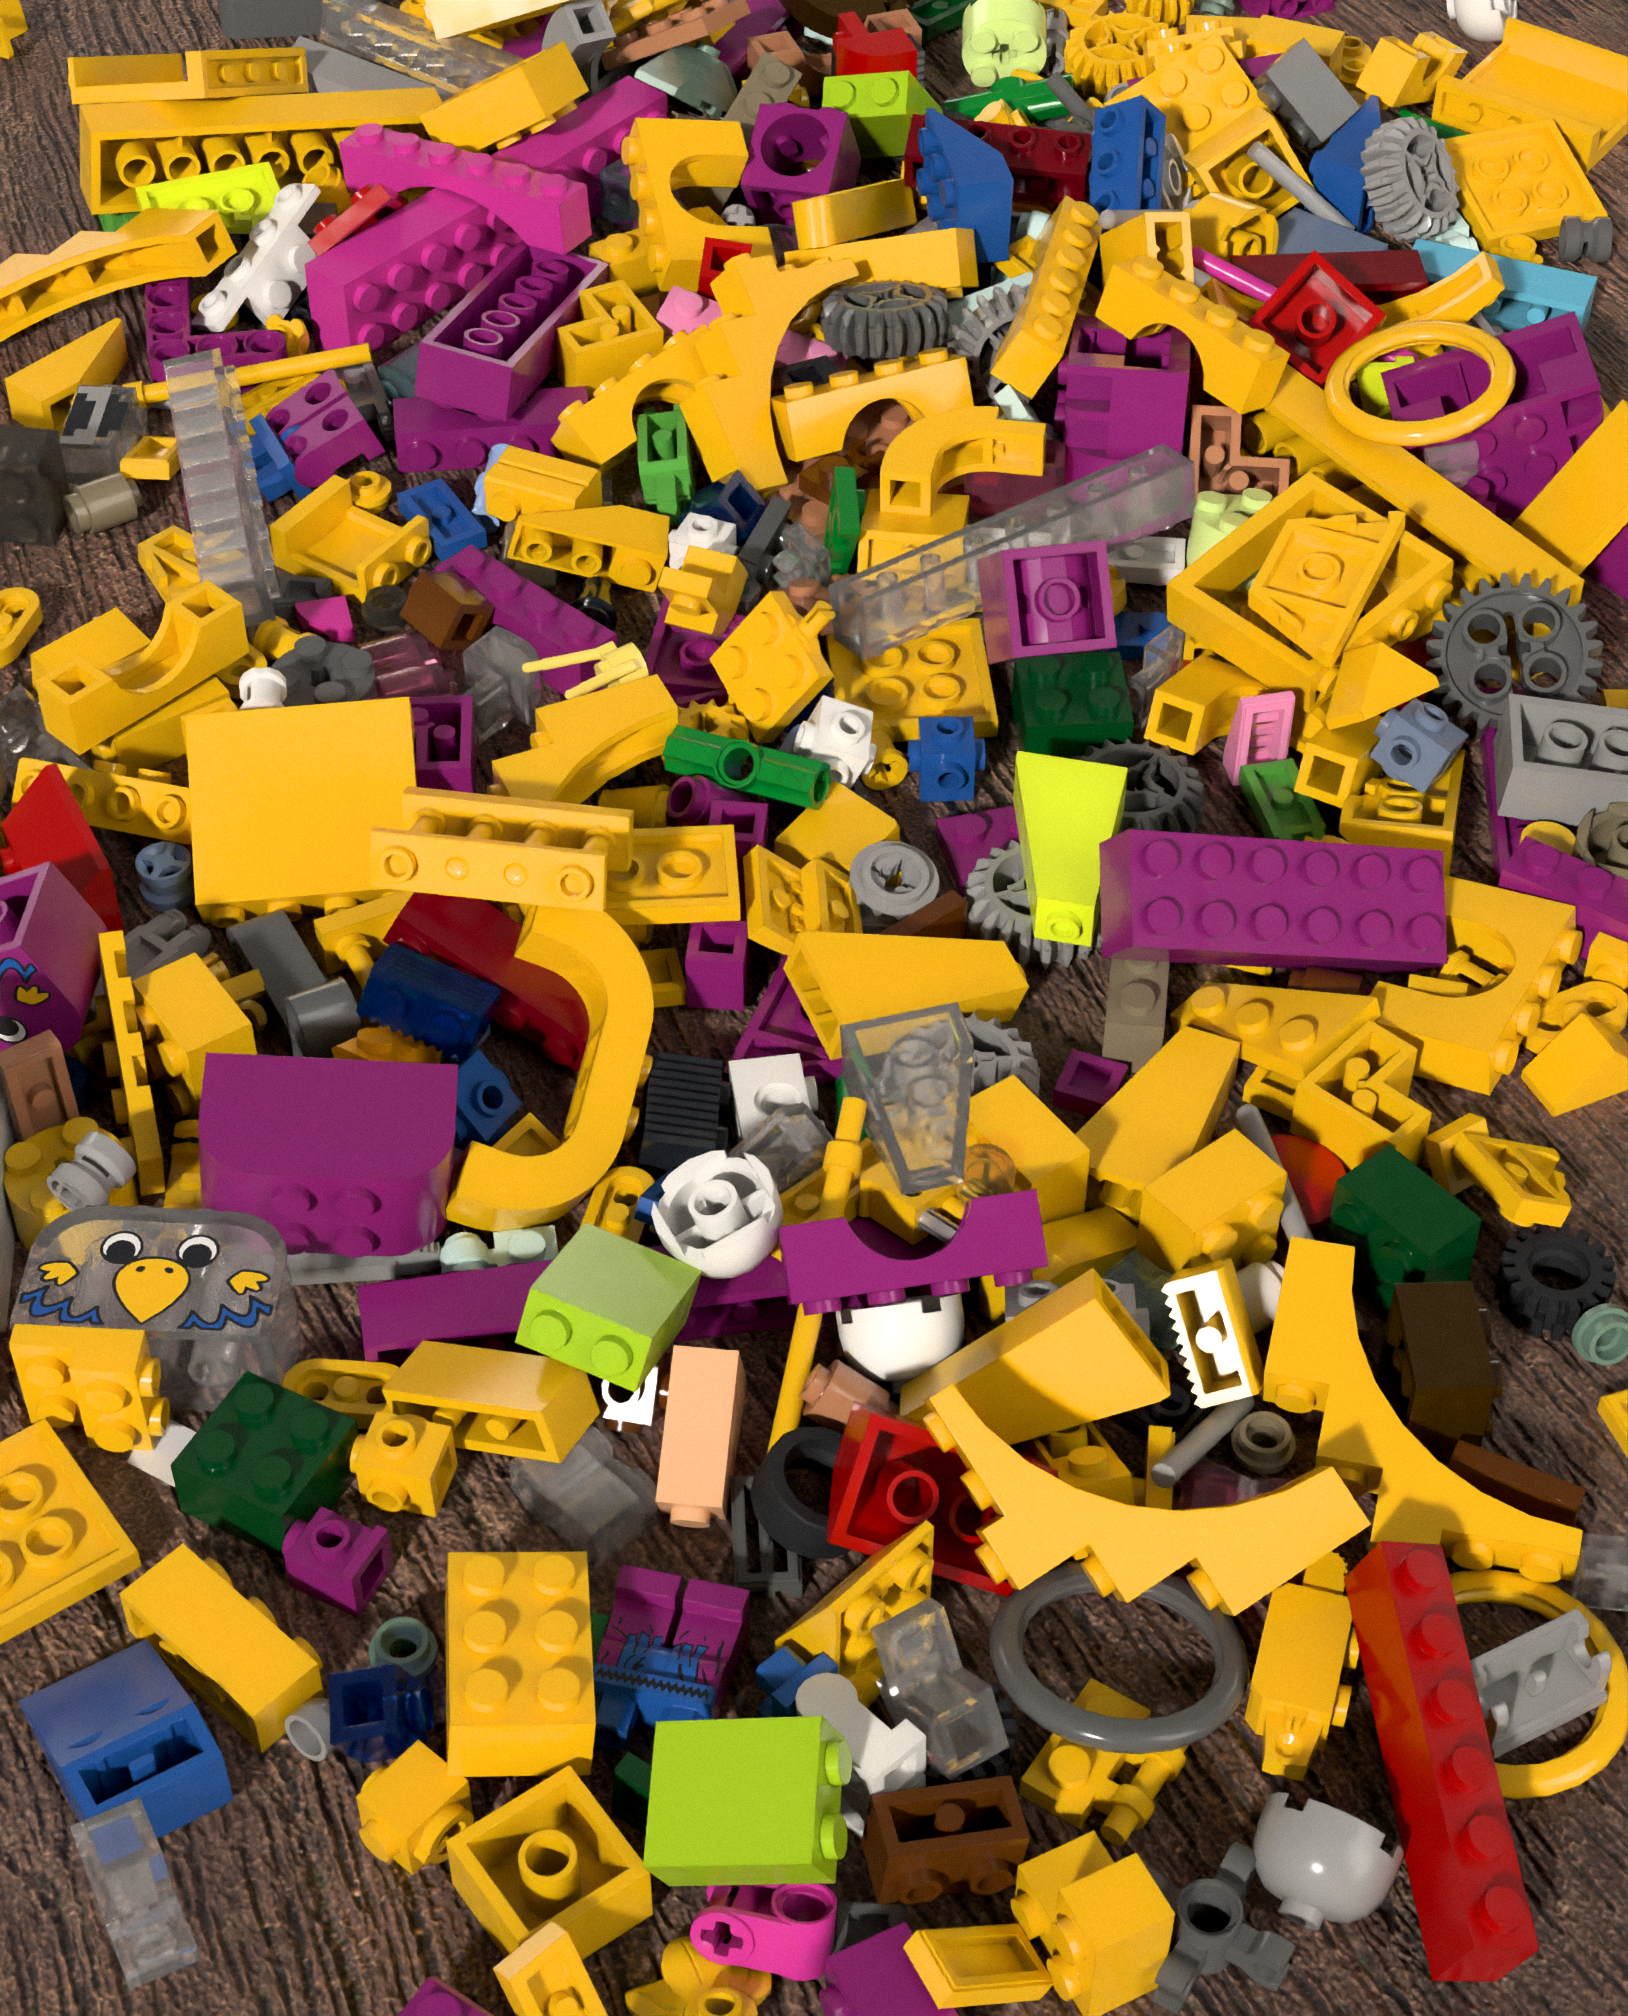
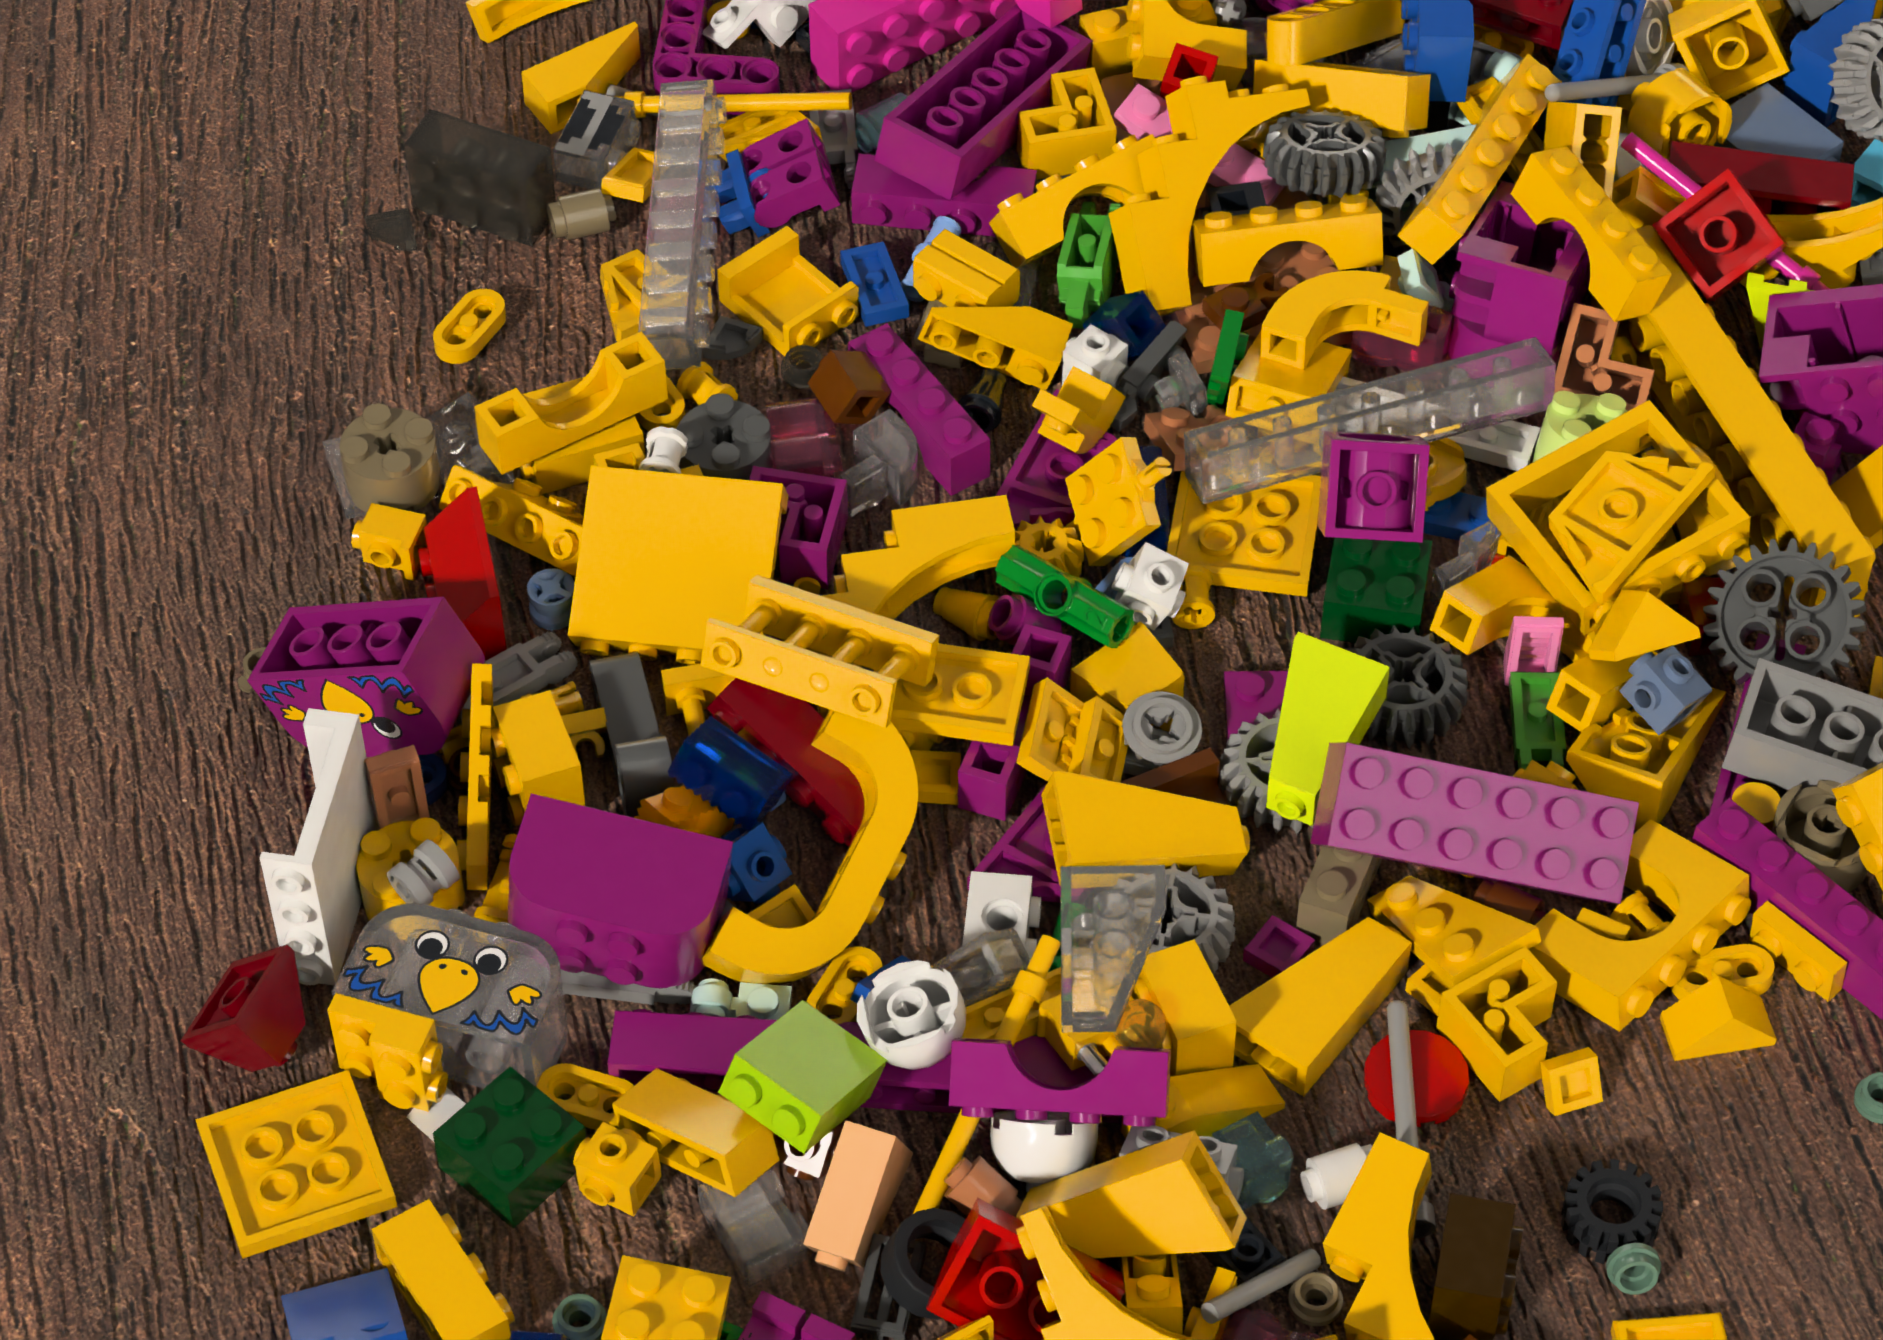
camera: 15 degrees right, 5 degrees up
(98, 641) = (535, 366): yellow hinge -> none
(294, 332) = (789, 63): yellow plate -> none
(326, 617) = (749, 366): dark pink tile -> none
(337, 1560) = (547, 1236): magenta brick -> none
(370, 491) = (817, 241): yellow plate -> none
(615, 666) = (981, 477): light yellow plant -> none
(682, 1111) = (922, 908): black brick -> none
(944, 747) = (1249, 614): blue brick -> none
(1213, 1208) = (1330, 1096): yellow brick -> none
(1215, 1333) = (1294, 1199): yellow brick -> none
(1295, 185) = (1771, 68): light grey bar -> none
(1400, 1227) = (1484, 1143): dark green brick -> none
(1427, 431) = (1801, 374): yellow wedge -> none
(1454, 461) = (1803, 405): clear plate -> none
(1517, 1178) = (1608, 1114): yellow wing -> none

